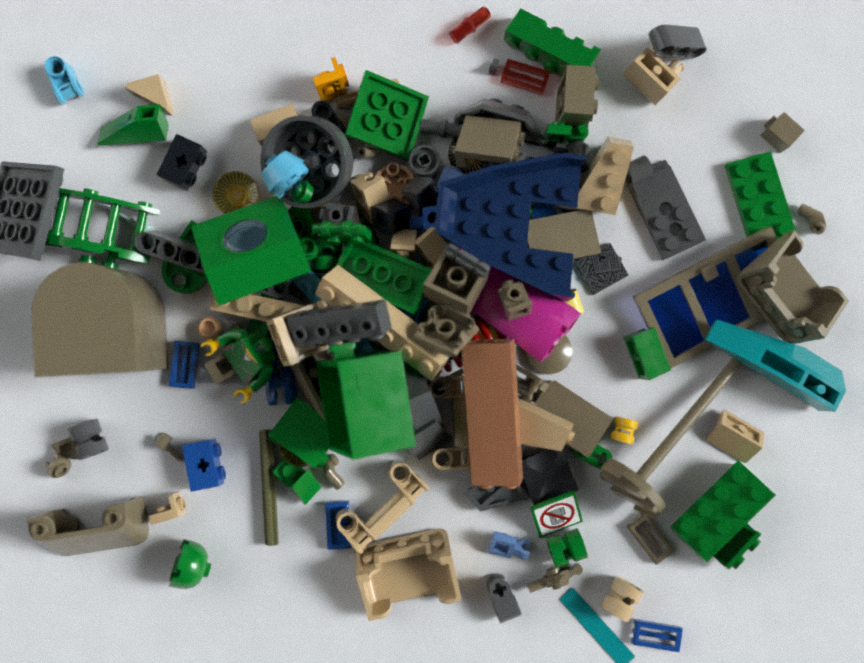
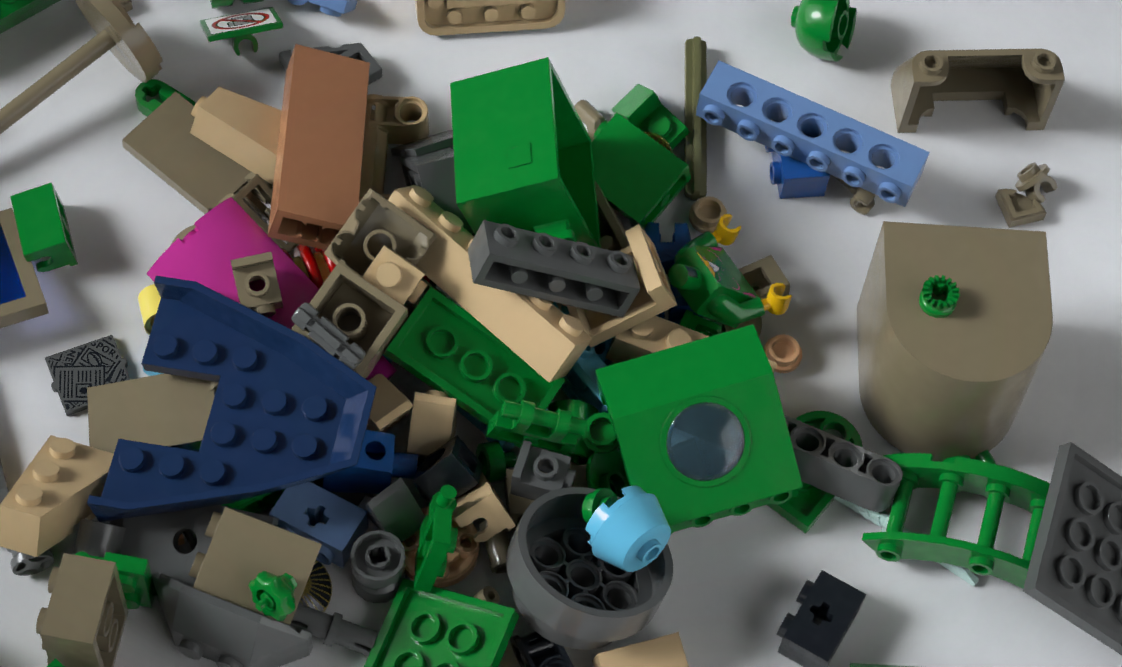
camera: 175 degrees right, 25 degrees down
(88, 439) = (984, 202): dark grey wheel -> none
(92, 315) = (939, 286): none -> green bush
(134, 451) = (802, 117): none -> medium blue brick
(166, 512) = (857, 95): tan bracket -> none
(193, 364) = (822, 333): blue tile -> none
(230, 184) = (731, 542): clear yellow dish -> none
(257, 416) = (706, 213): none -> tan plate
(335, 538) = (588, 57): blue tile -> none
(362, 533) = (555, 33): tan piece -> none
(393, 162) = (436, 539): none -> green plate
(433, 310) = (396, 276): none -> tan bracket
(475, 119) = (274, 594): none -> green piece
(547, 475) = (246, 69): black brick -> none
(627, 425) = (108, 124): yellow wheel -> none

